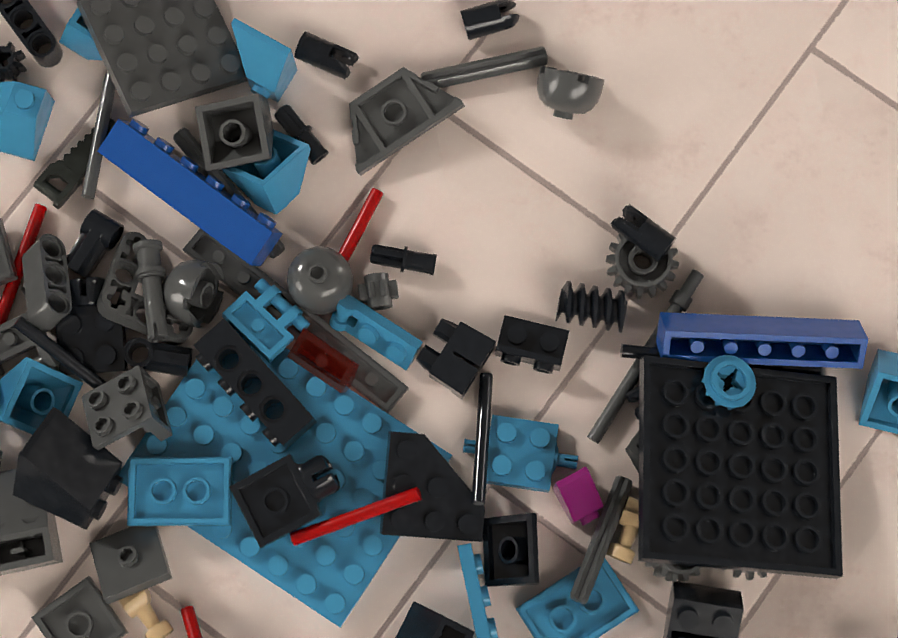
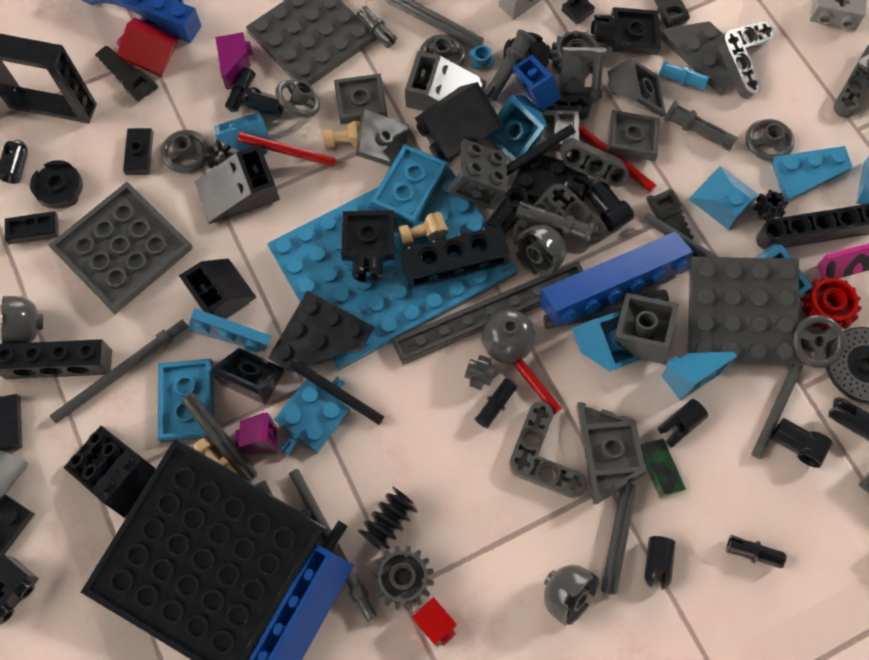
camera: 115 degrees right, 10 degrees down
(229, 430) = (433, 228): none -> tan leg
(259, 326) = (494, 279): dark azure plate -> none
(297, 129) = (627, 376): black axle -> none
(324, 361) = (447, 310): clear red slope -> none
(355, 516) = (327, 281): red bar -> none
(375, 331) = (451, 357): dark azure plate -> none
(387, 56) = (662, 468): none -> clear green slope
(446, 366) = (401, 405): black hips -> none
(448, 187) = (536, 462): none -> dark grey beam
(531, 344) = (385, 462): black bracket -> none
(643, 232) = (413, 587): black hinge -> none
(669, 206) = (435, 622): none -> red brick
(742, 380) = (265, 598): dark azure gear -> none

